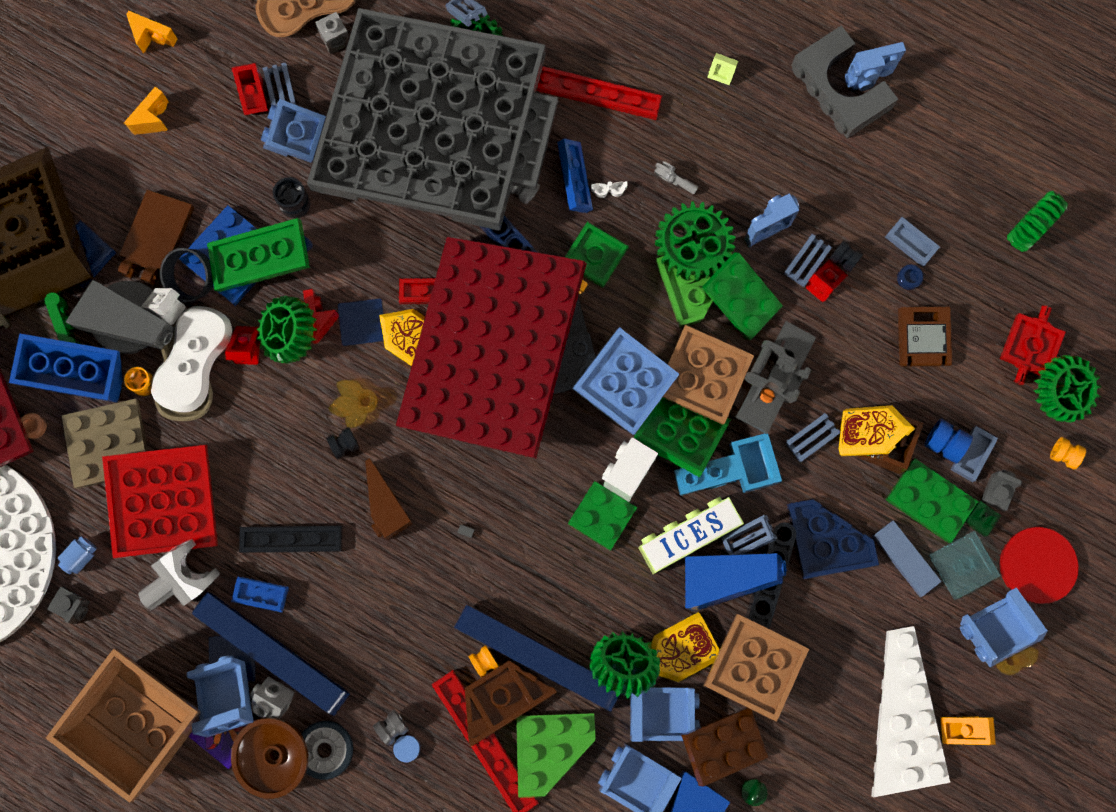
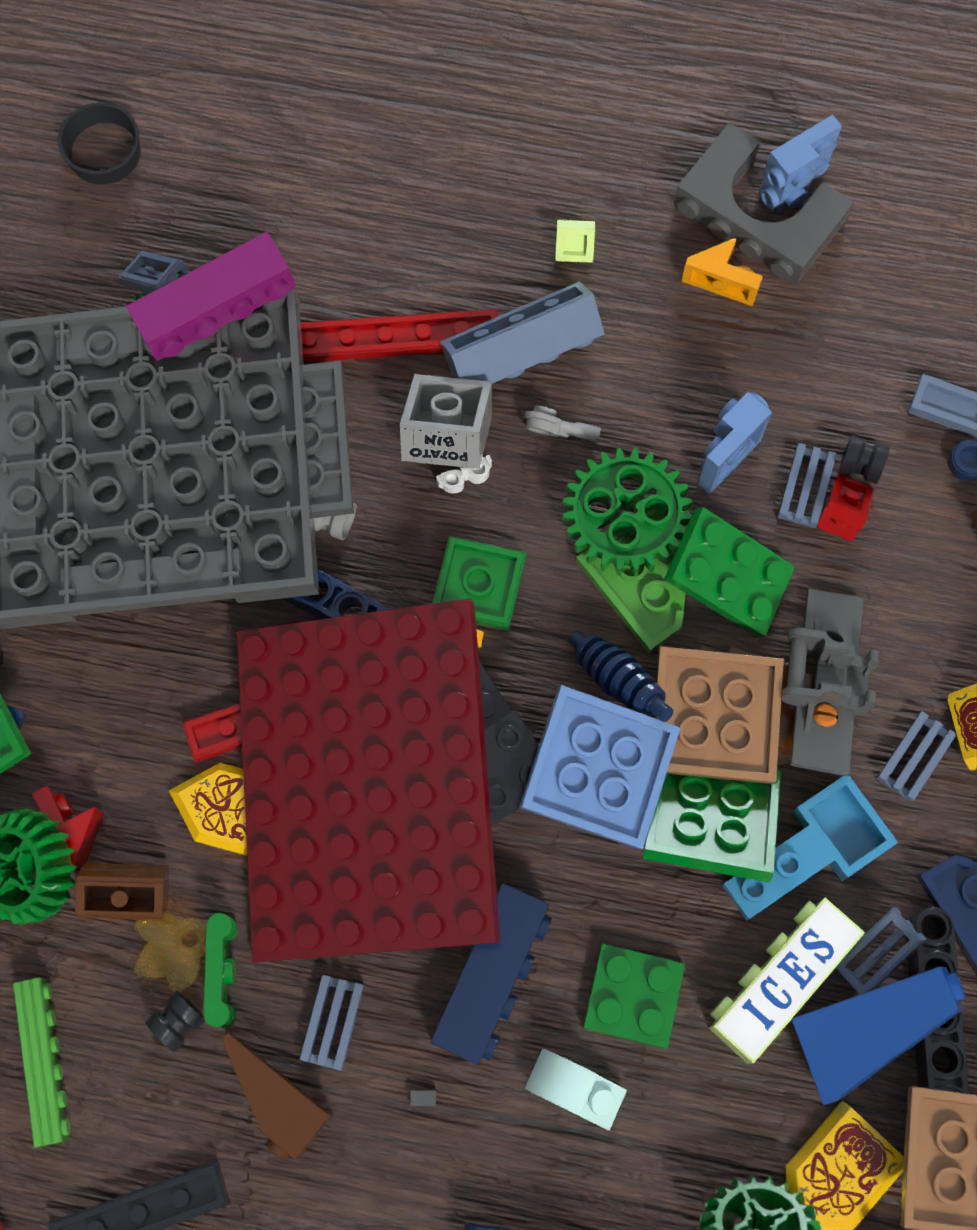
camera: 15 degrees left, 5 degrees down
(262, 440) = (41, 1063): none -> bright green piece
(336, 361) = (122, 891): none -> reddish brown brick
(360, 322) = (142, 811): dark blue sticker -> none
(376, 423) = (219, 971): none -> green plate
(440, 455) = (322, 1059): none -> sand blue tile
(495, 35) = (212, 296): none -> magenta brick
(525, 477) = (489, 977): none -> dark blue brick
(551, 554) = (575, 1089): none -> light aqua brick
(575, 176) = (408, 478): blue plate -> none
(608, 153) = (446, 421): none -> light grey brick
(630, 469) = (654, 906): white brick -> none
(657, 334) = (620, 676): none -> dark blue piece
(670, 118) = (525, 336): none -> sand blue brick
(798, 114) = (713, 273): none -> light orange slope

